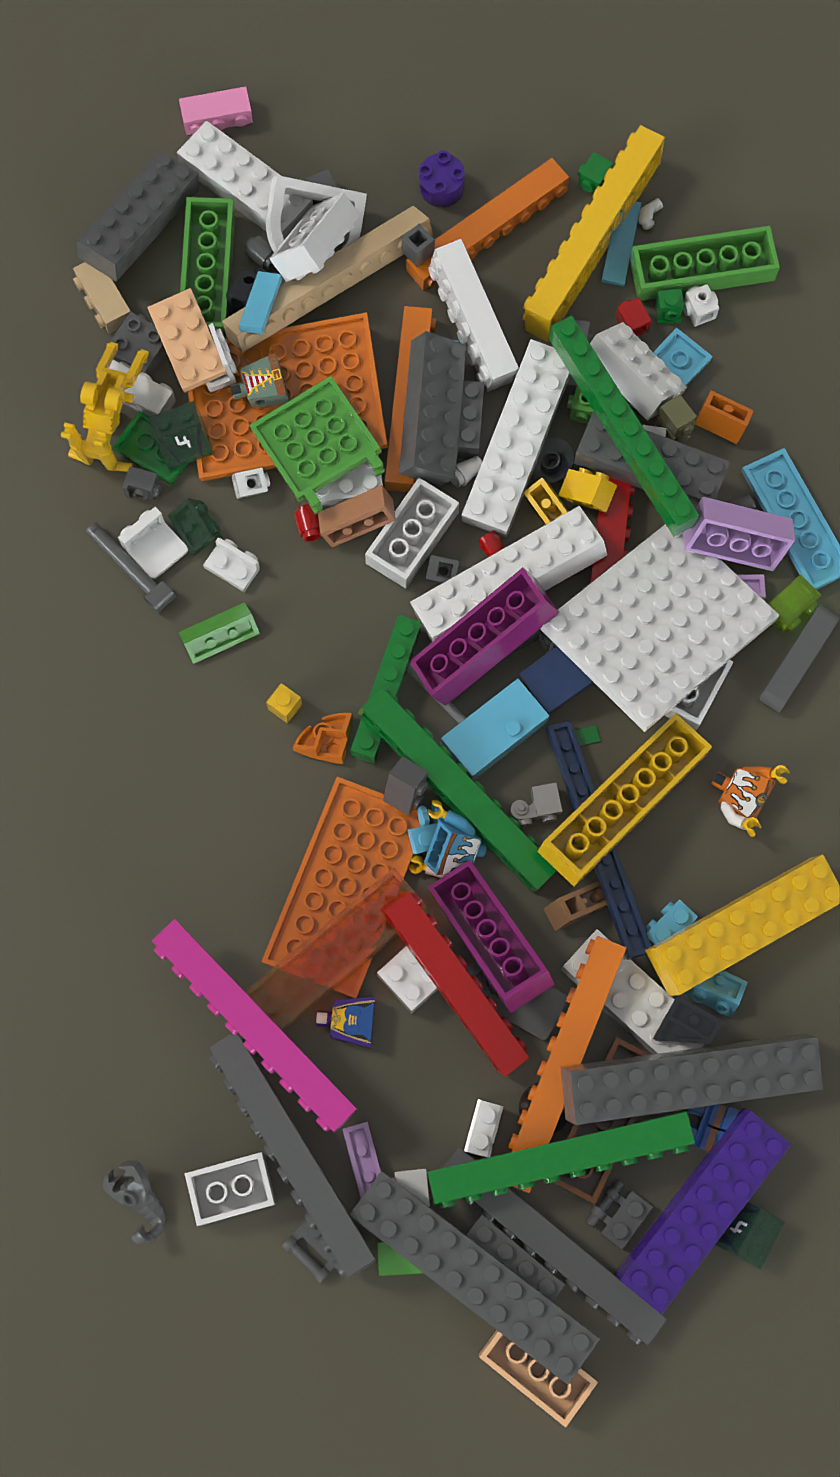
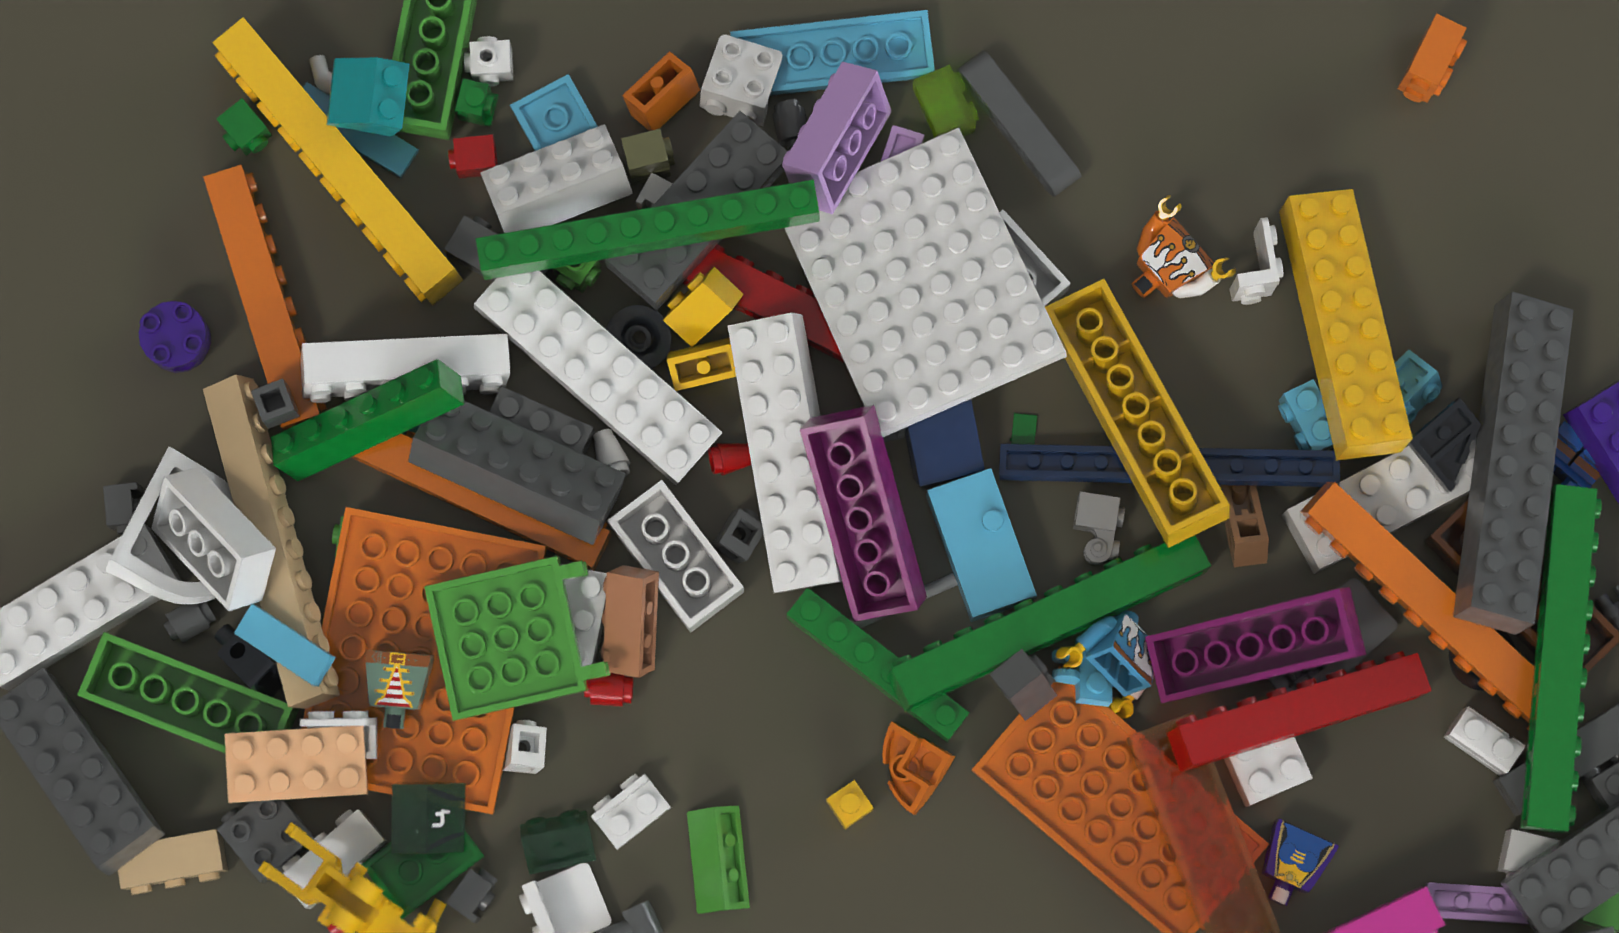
camera: 70 degrees left, 5 degrees up
(428, 303) = (367, 420): none -> green brick
(644, 227) = (368, 95): none -> teal slope
(750, 855) = (1253, 285): none -> white bracket
(753, 464) = (740, 79): none -> white bracket

